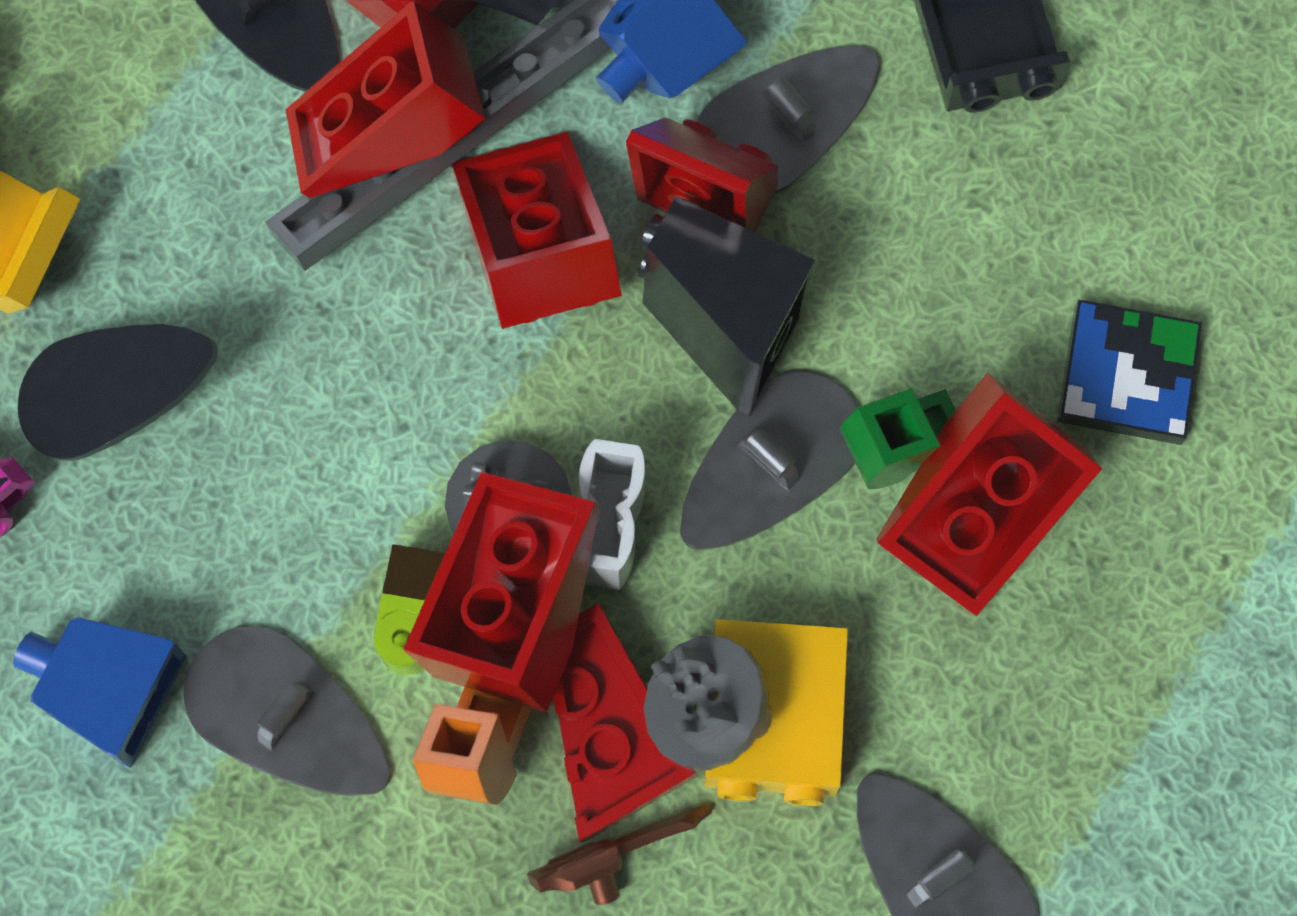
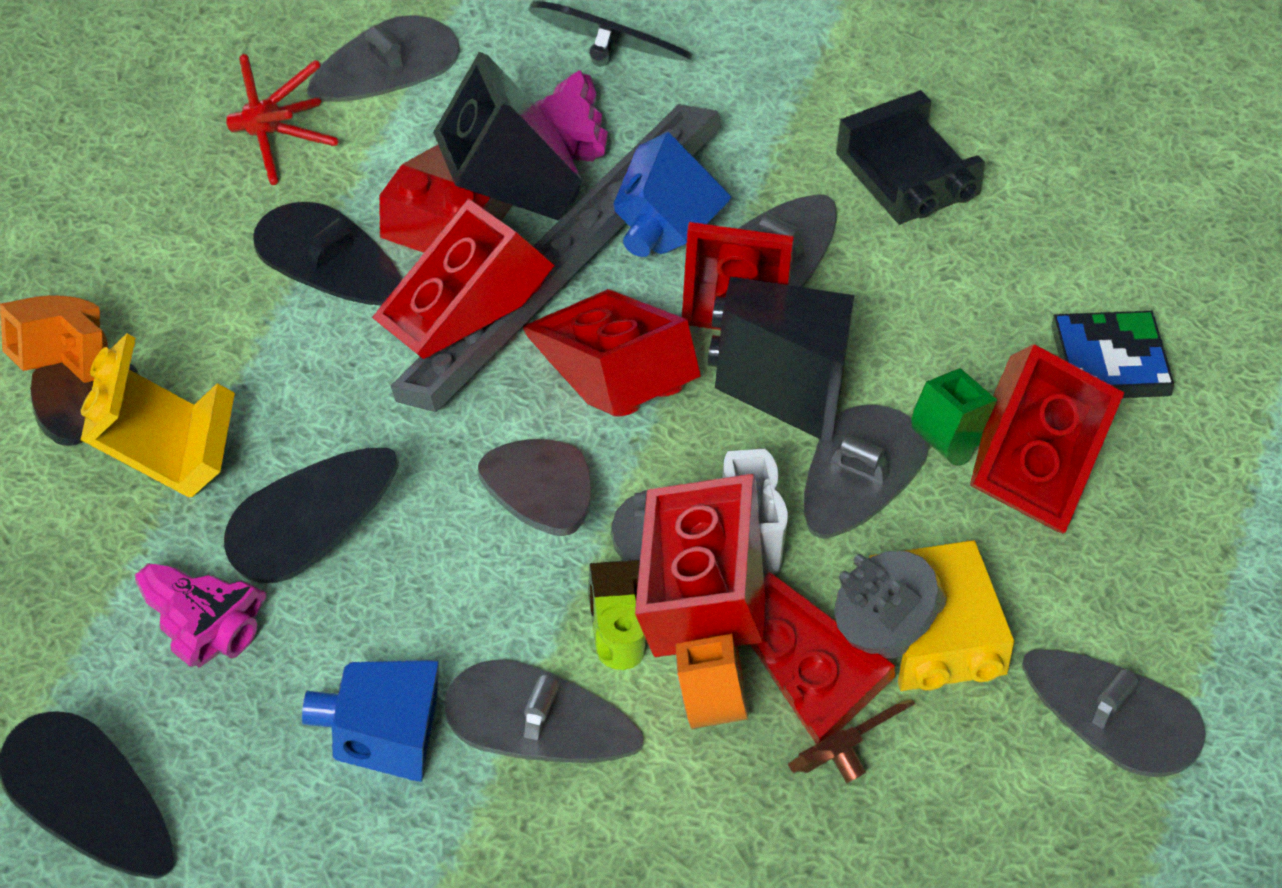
camera: 20 degrees left, 25 degrees down
(382, 409) = (539, 483): none -> flat silver shield

